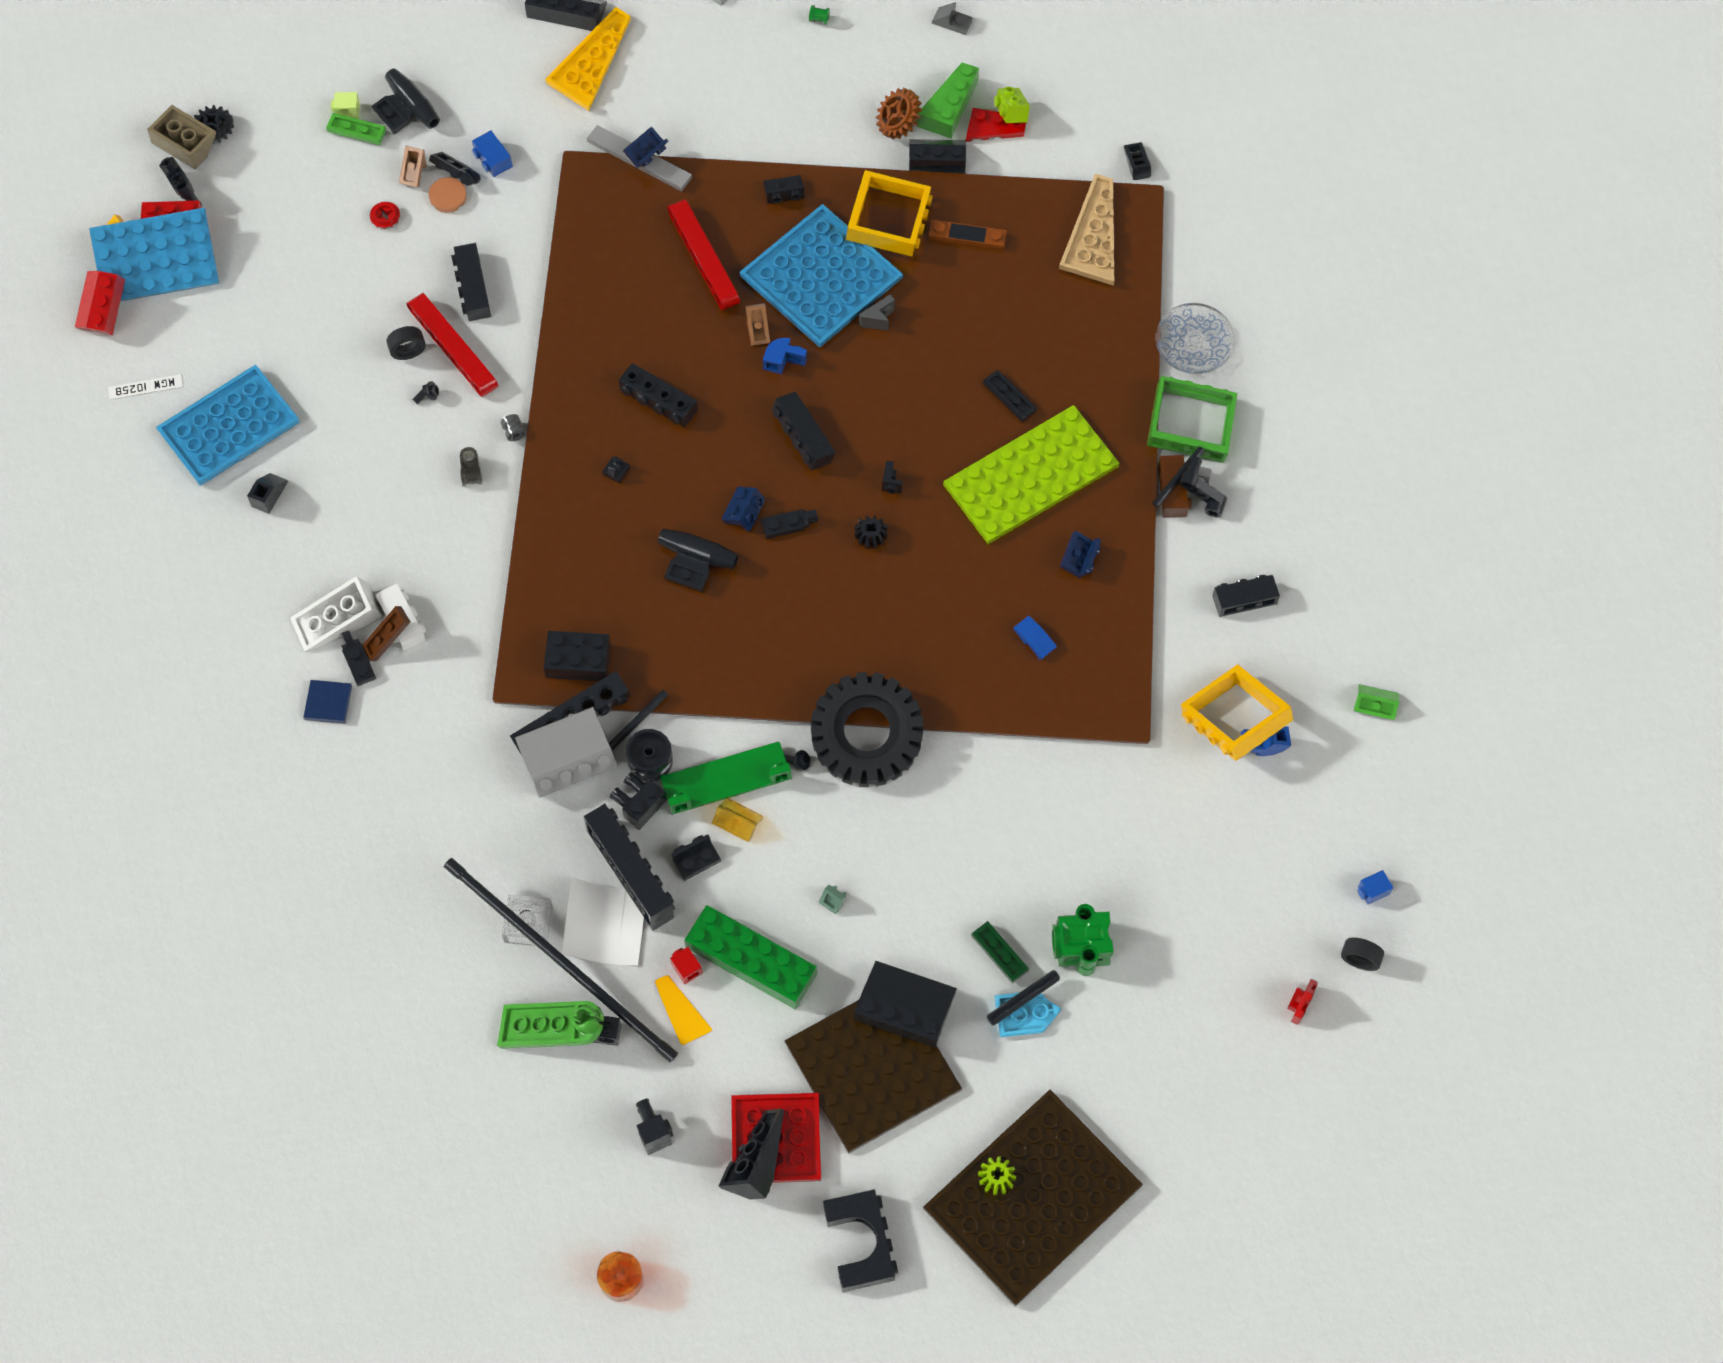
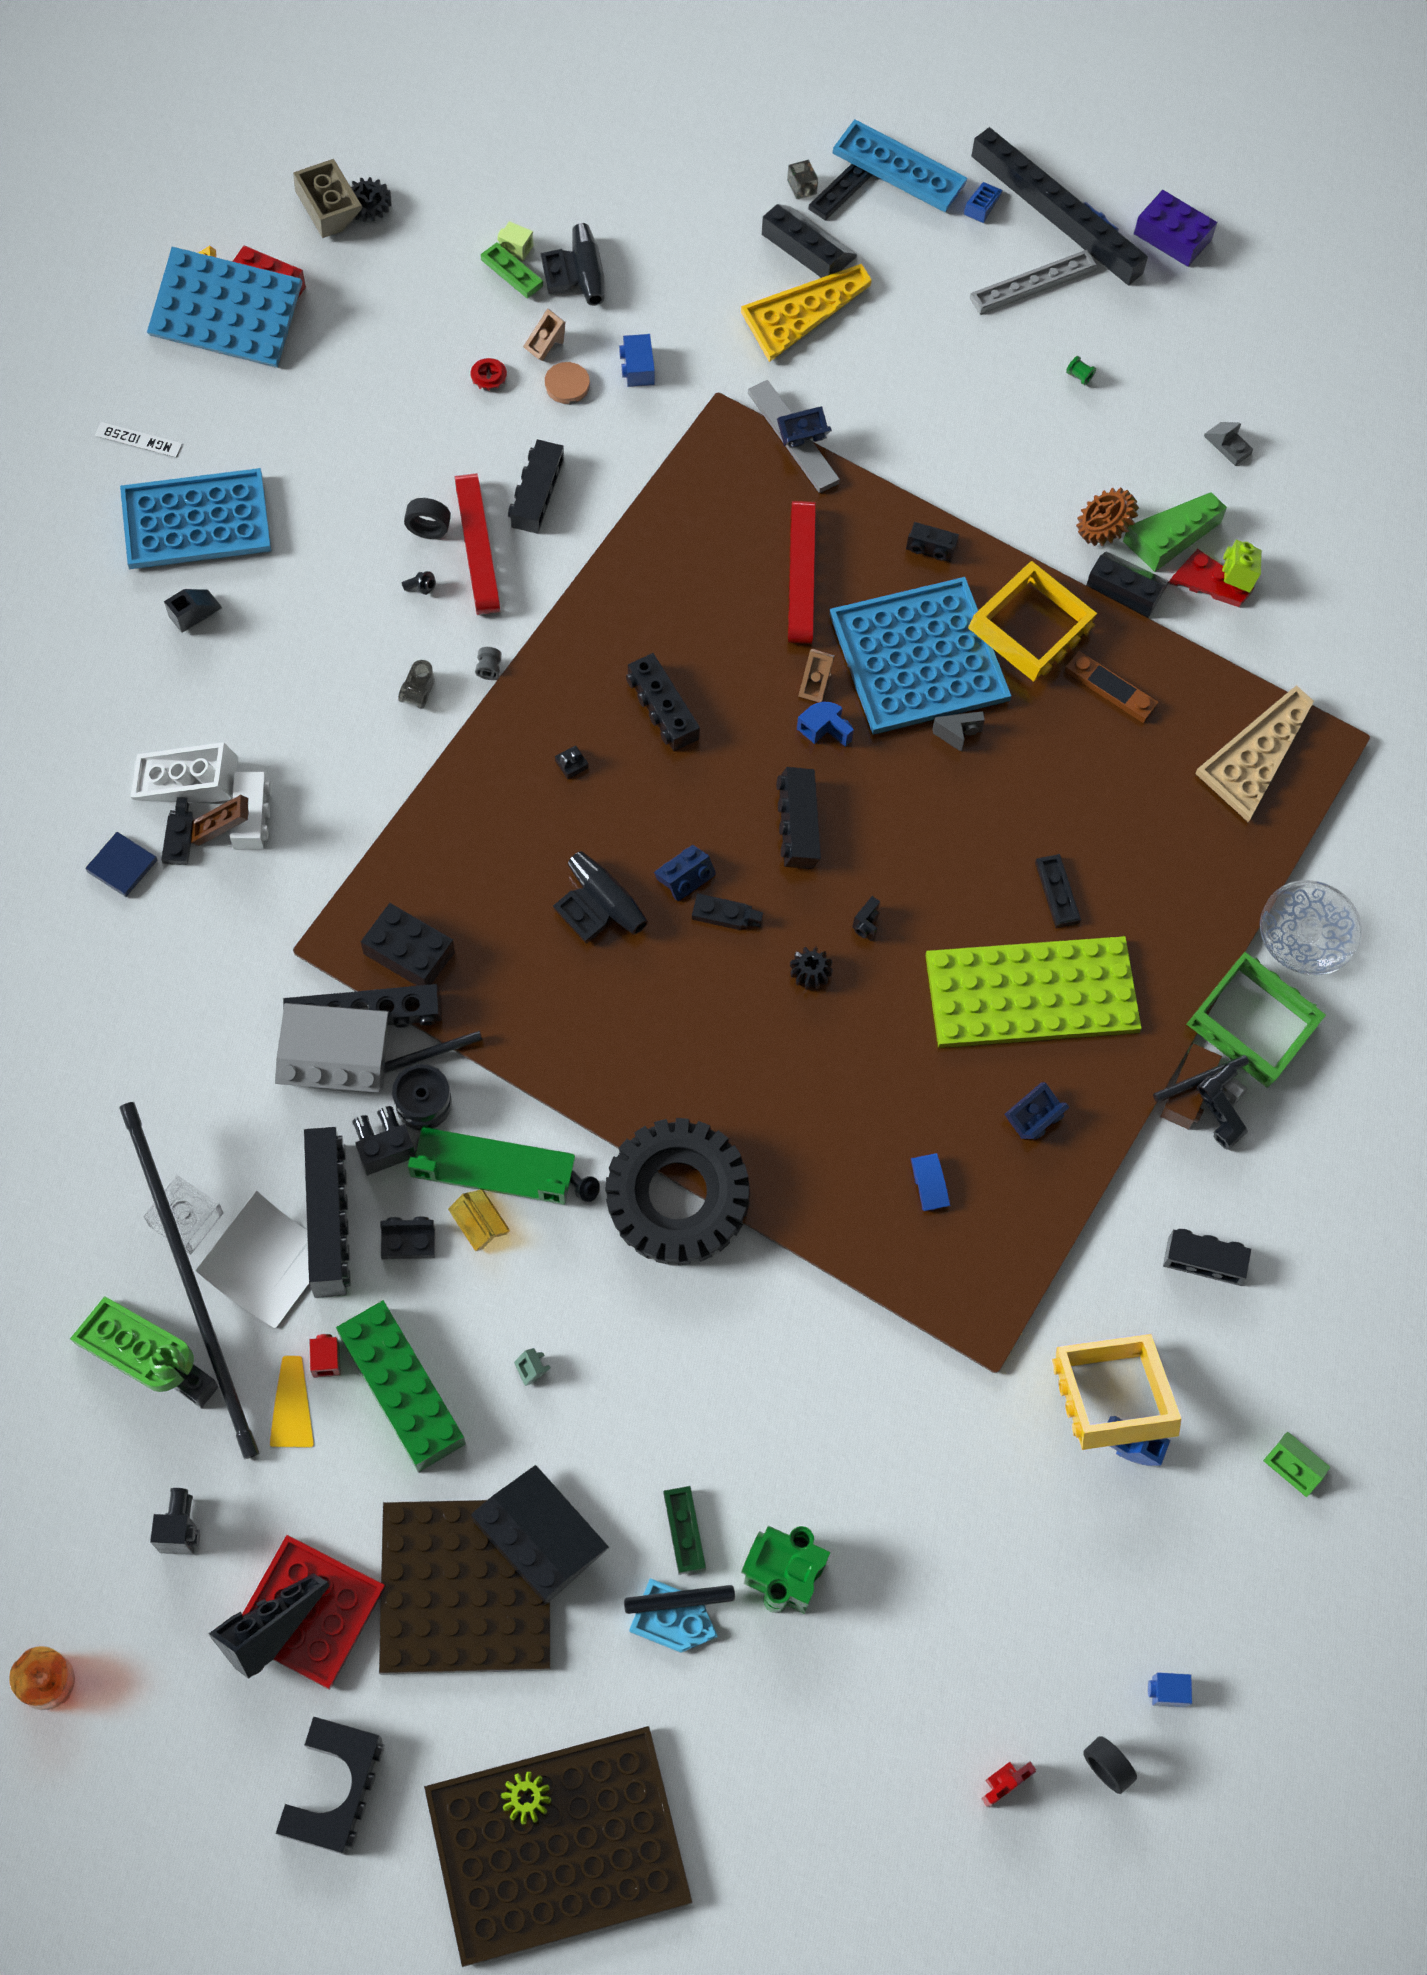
camera: 25 degrees right, 0 degrees up
(100, 302) = (142, 330): red slope -> none
(178, 179) = (296, 240): black beam -> none
(455, 168) = (590, 358): black hinge -> none
(1138, 162) = (1356, 695): black slope -> none

